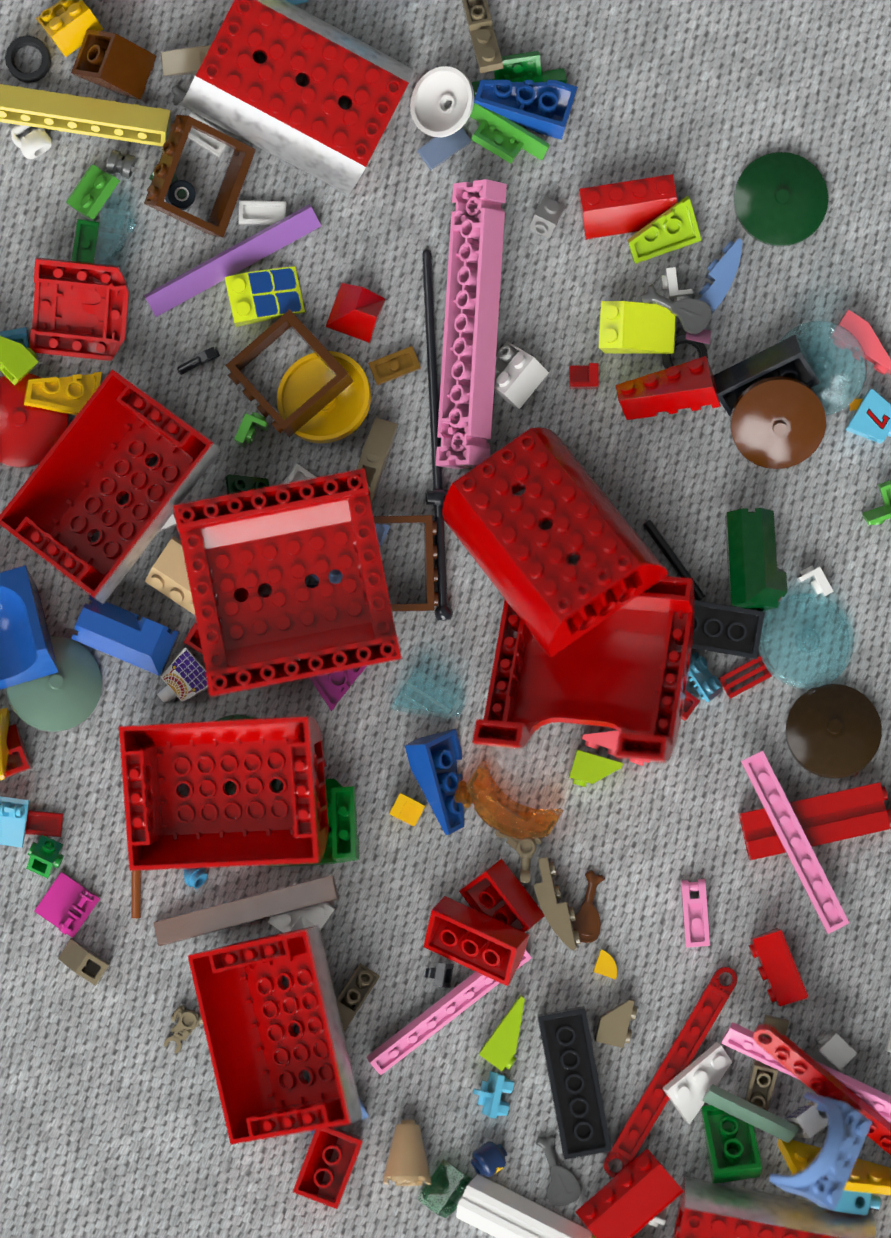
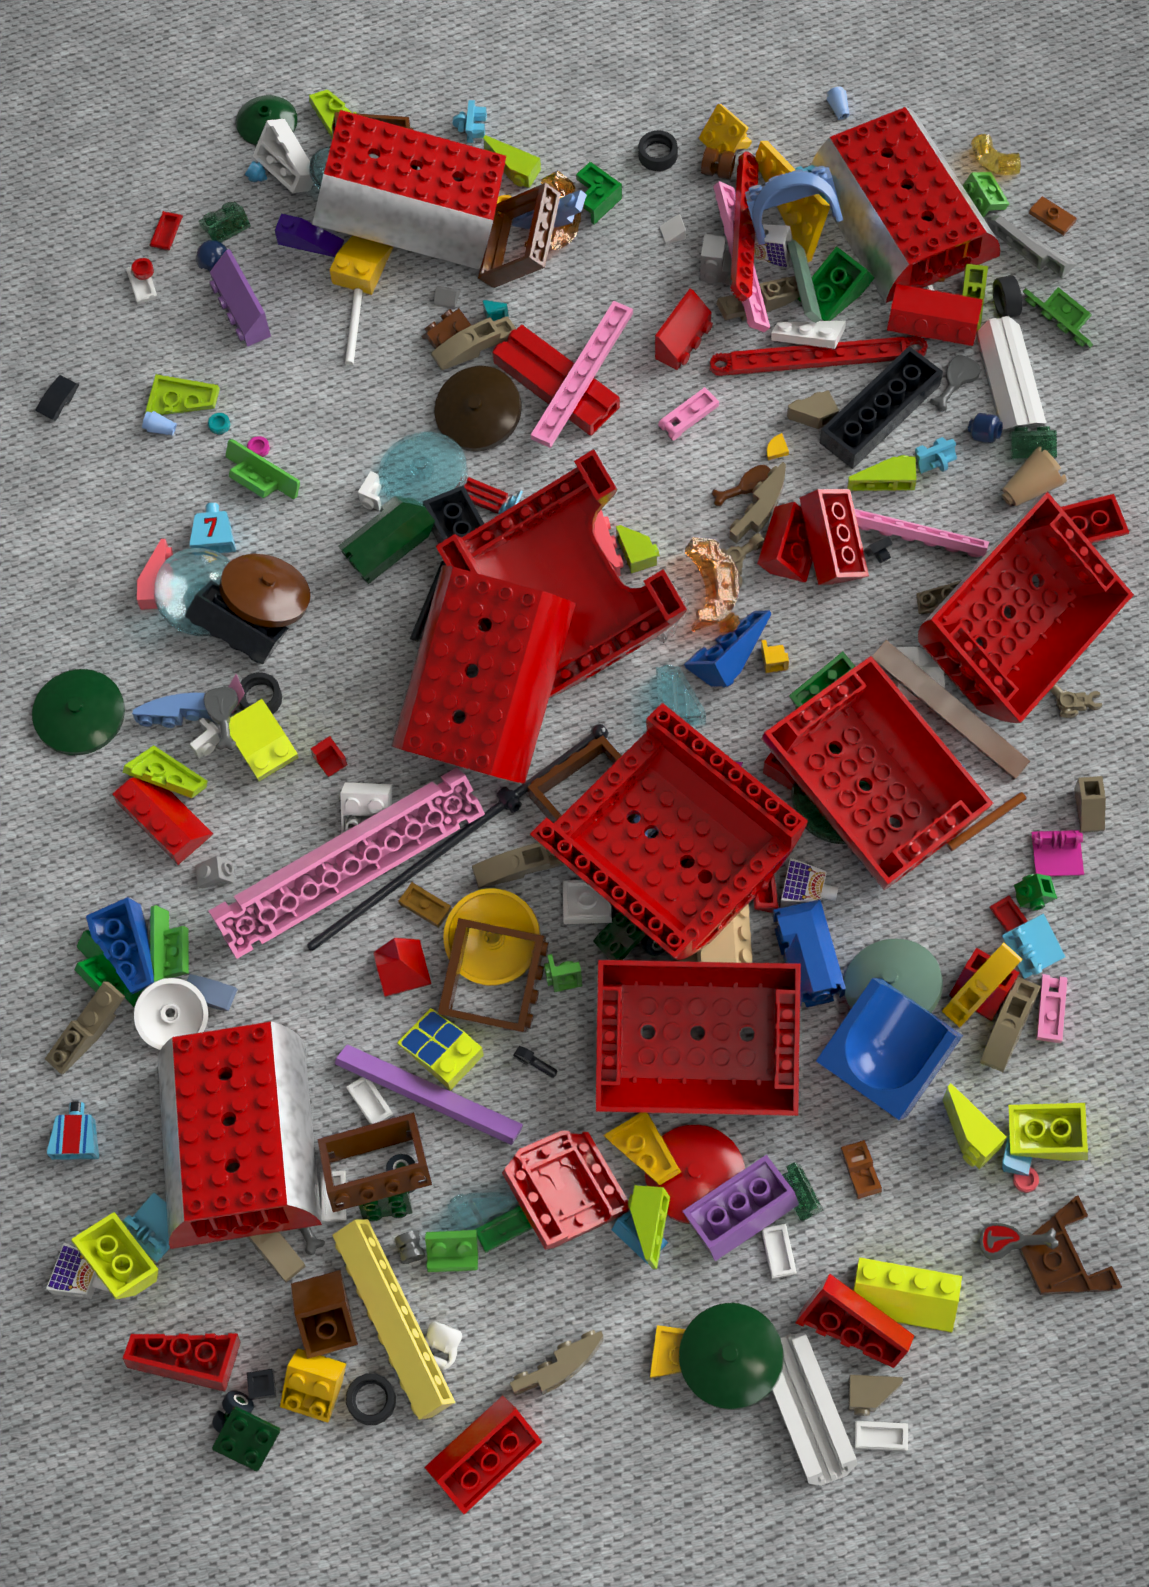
camera: 120 degrees left, 20 degrees down
(669, 390) = (294, 678): red wedge -> none

